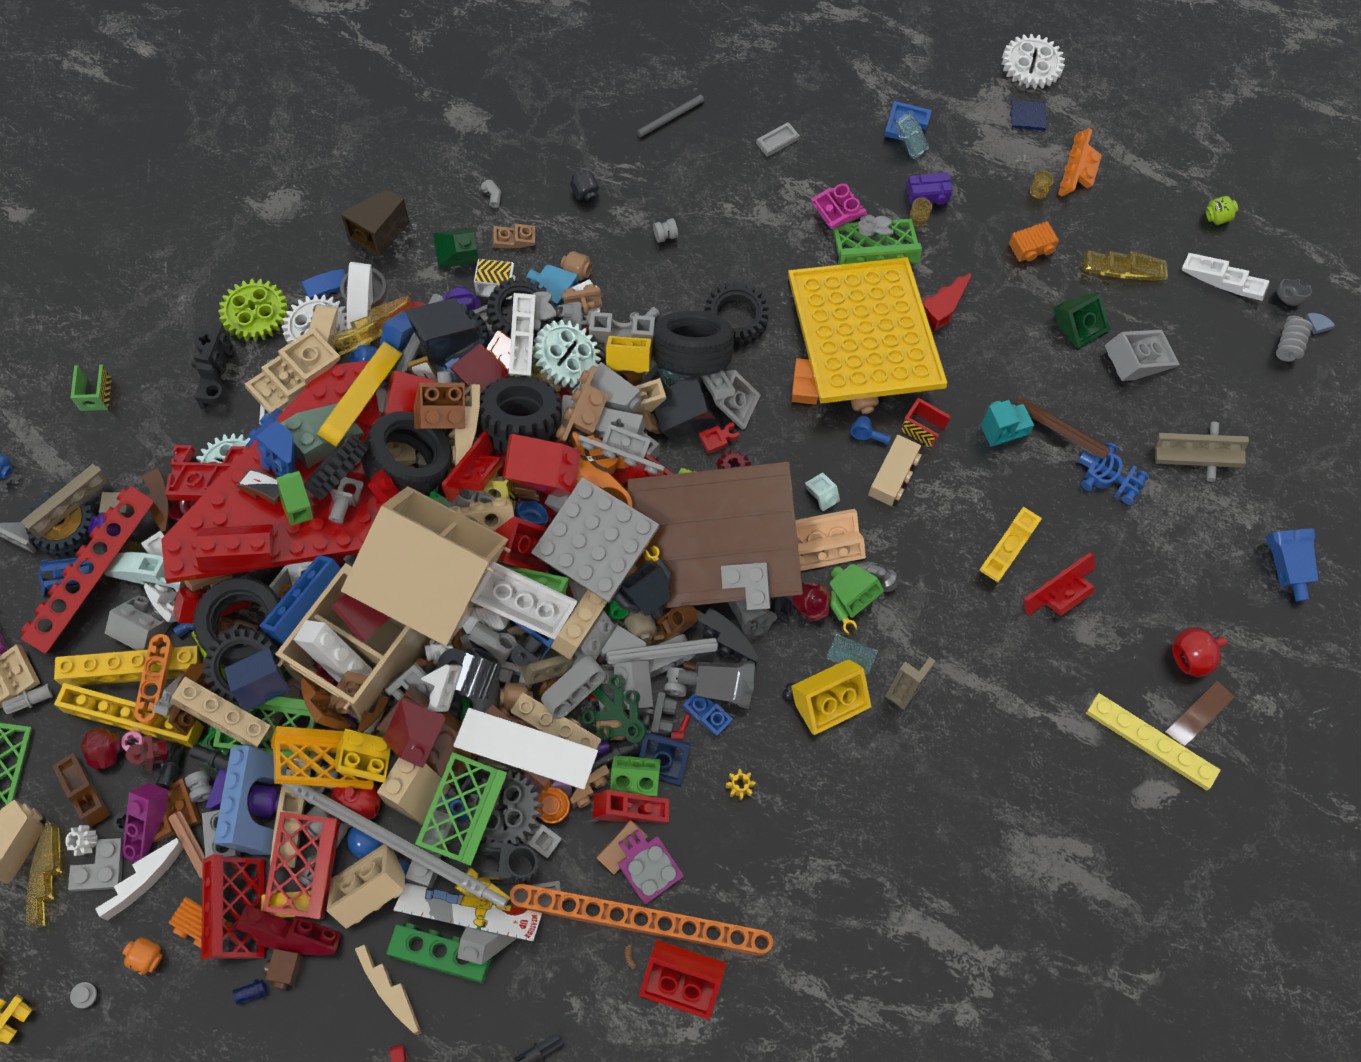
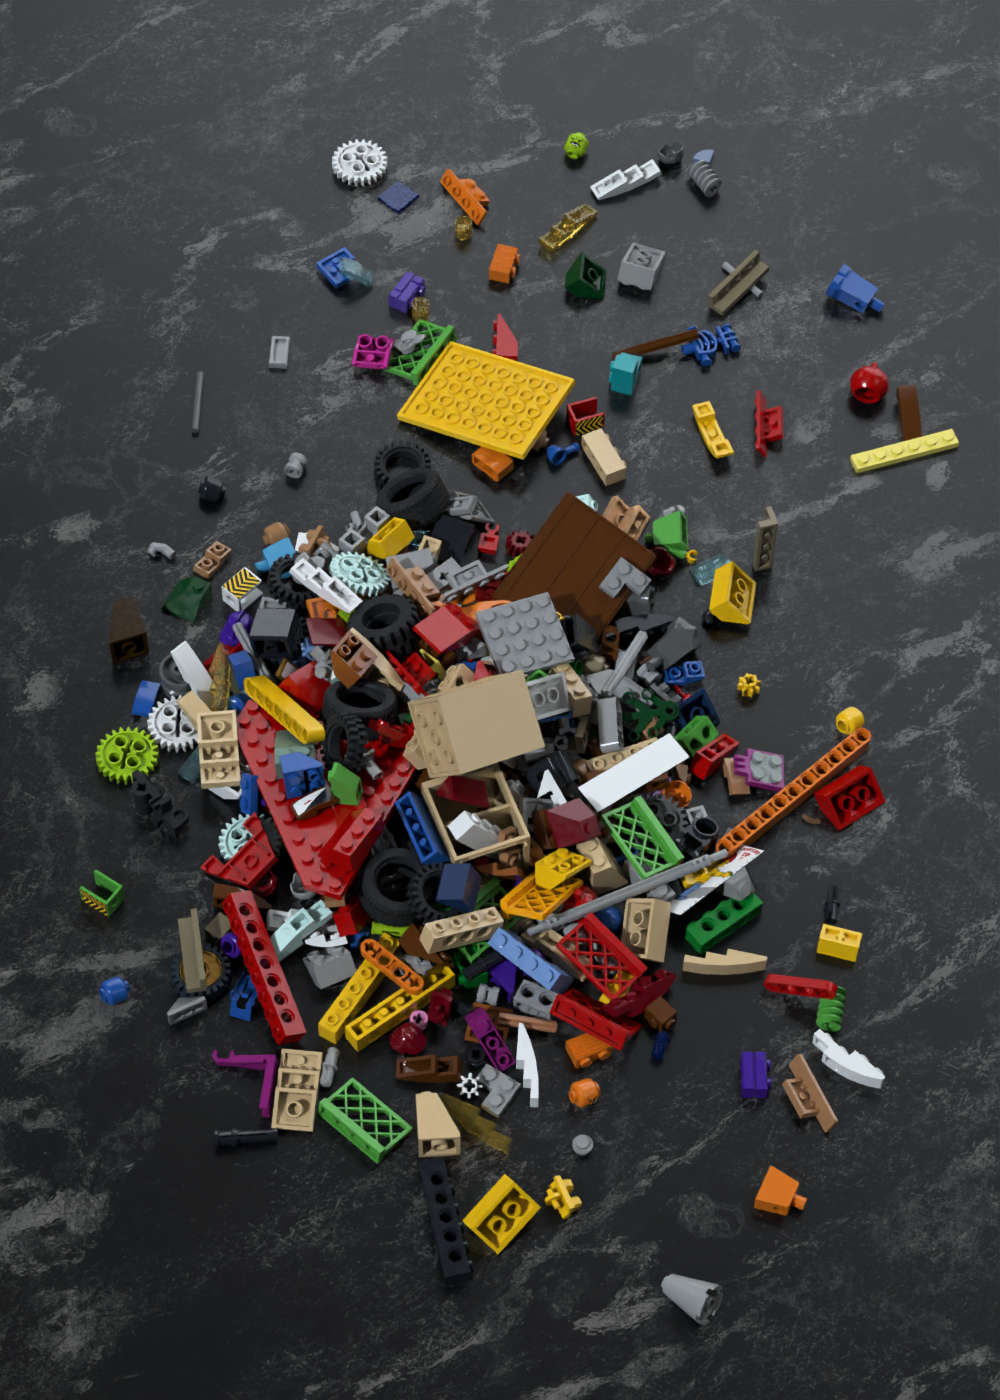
camera: 50 degrees left, 10 degrees down
(775, 915) = (849, 720): none -> yellow head

